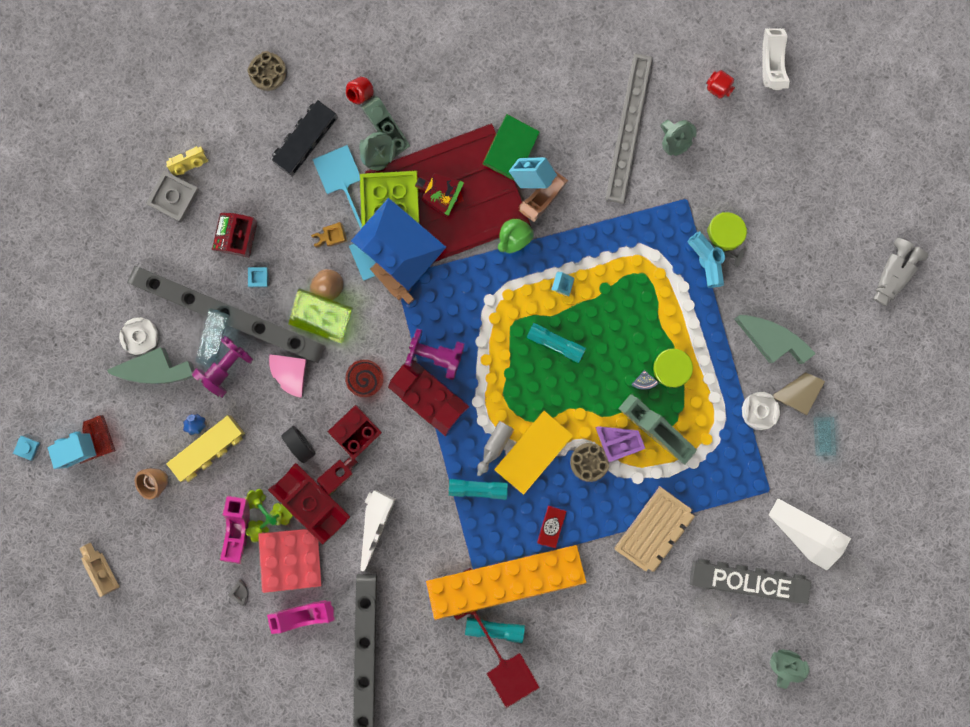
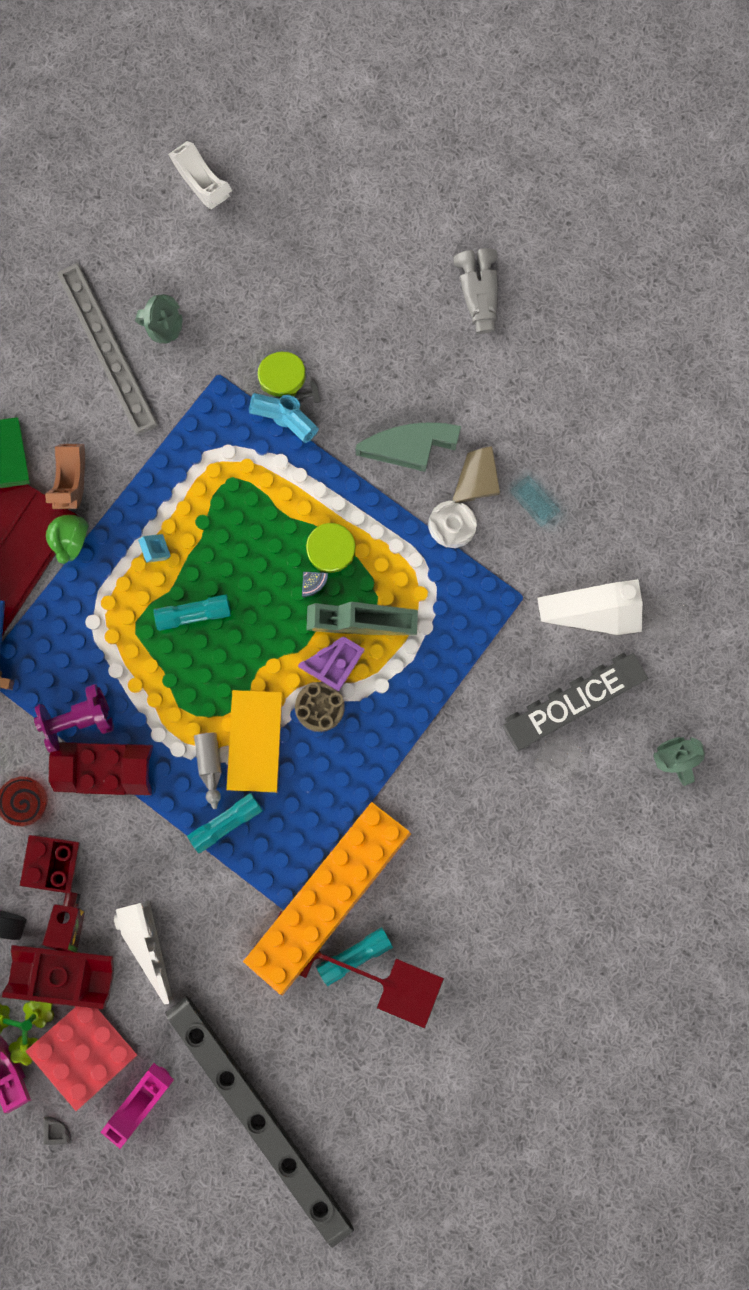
camera: 40 degrees left, 5 degrees down
(533, 173) = (37, 460): medium azure brick -> none
(551, 526) = (331, 802): red slope -> none
(653, 529) = (437, 726): tan hinge -> none
(720, 84) = (165, 238): red head -> none

